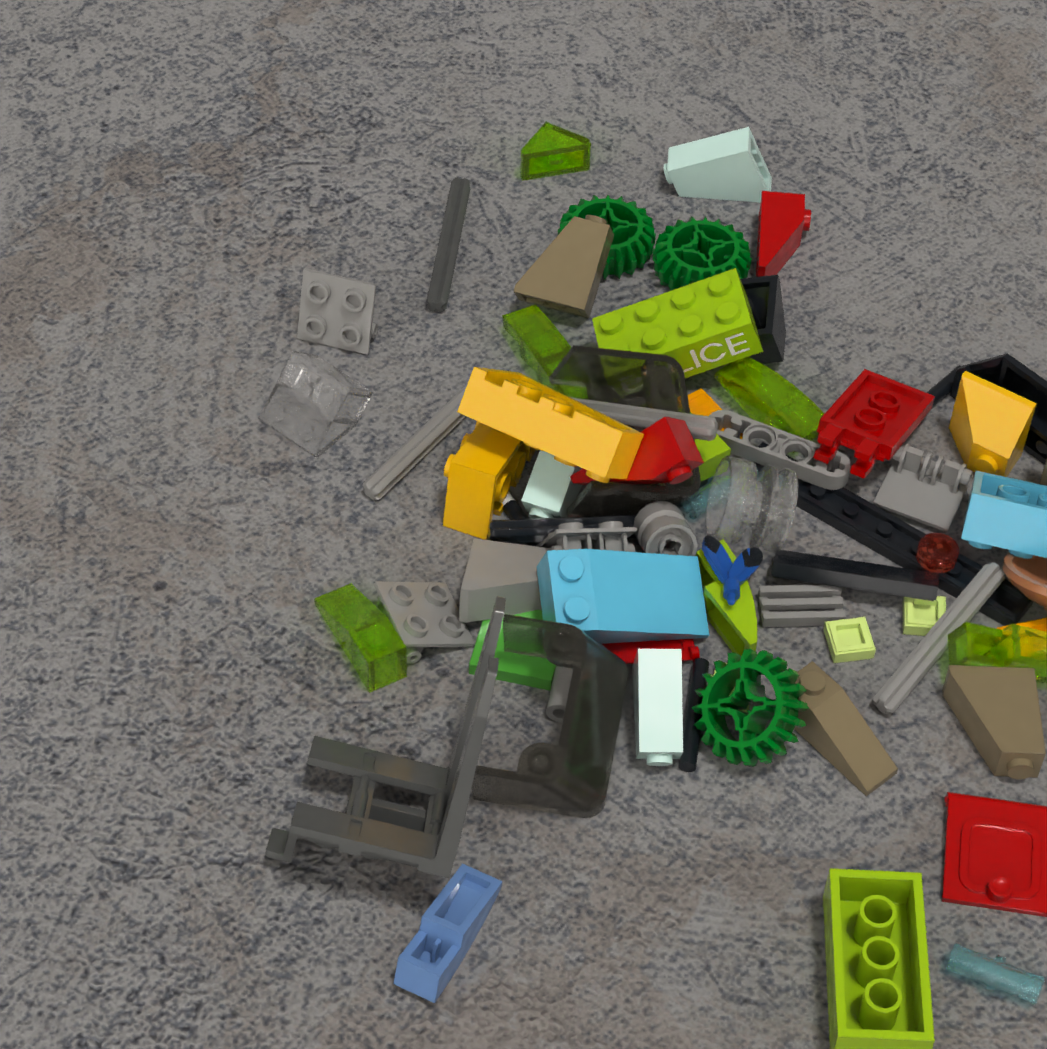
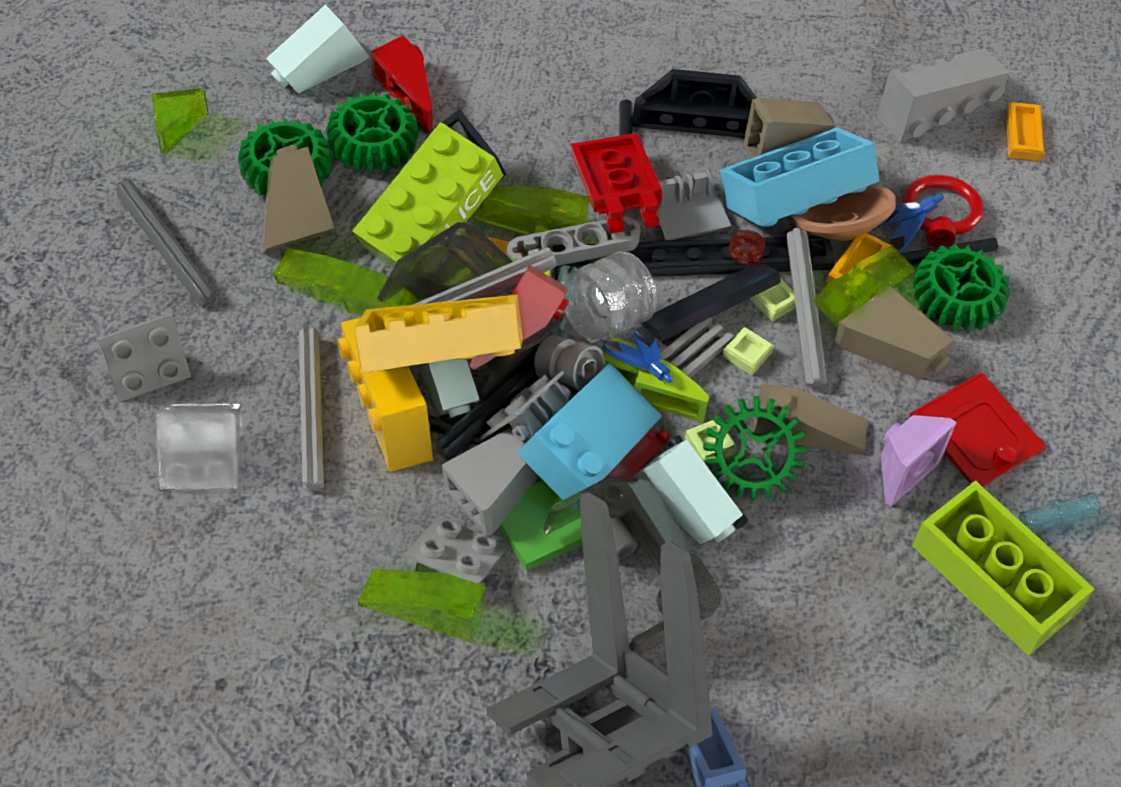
camera: 45 degrees left, 5 degrees up
(895, 821) = (912, 453): none -> lavender slope
(989, 425) = (694, 132): yellow slope -> none

